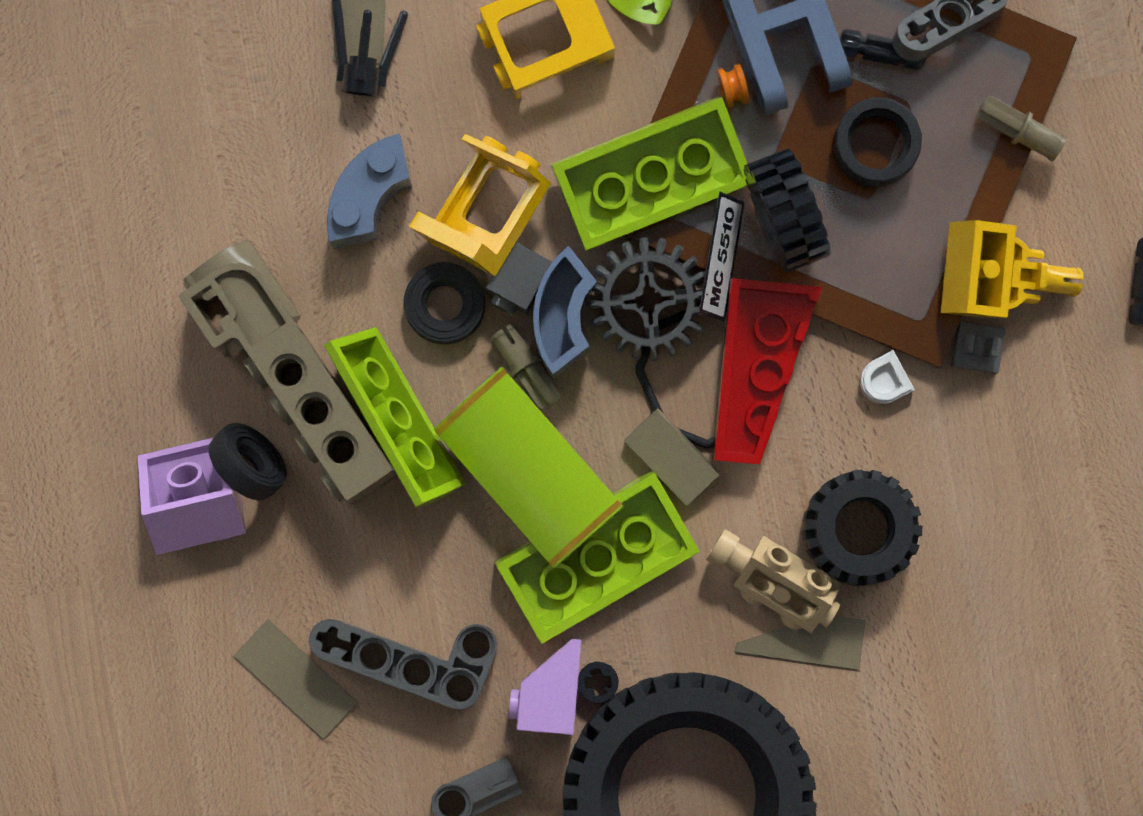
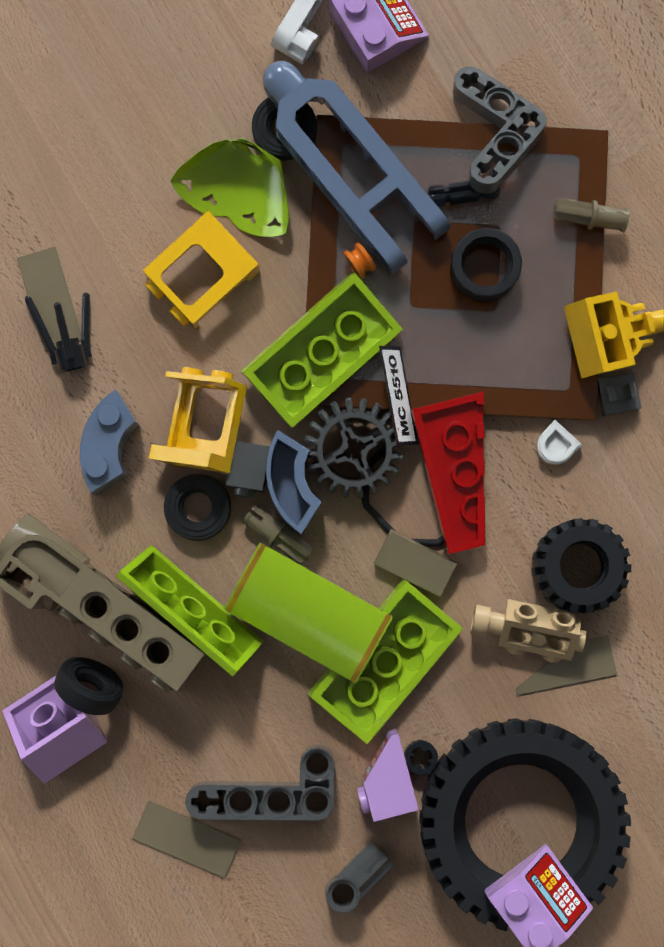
camera: 20 degrees left, 0 degrees up
(787, 210) = (437, 342): black bush -> none

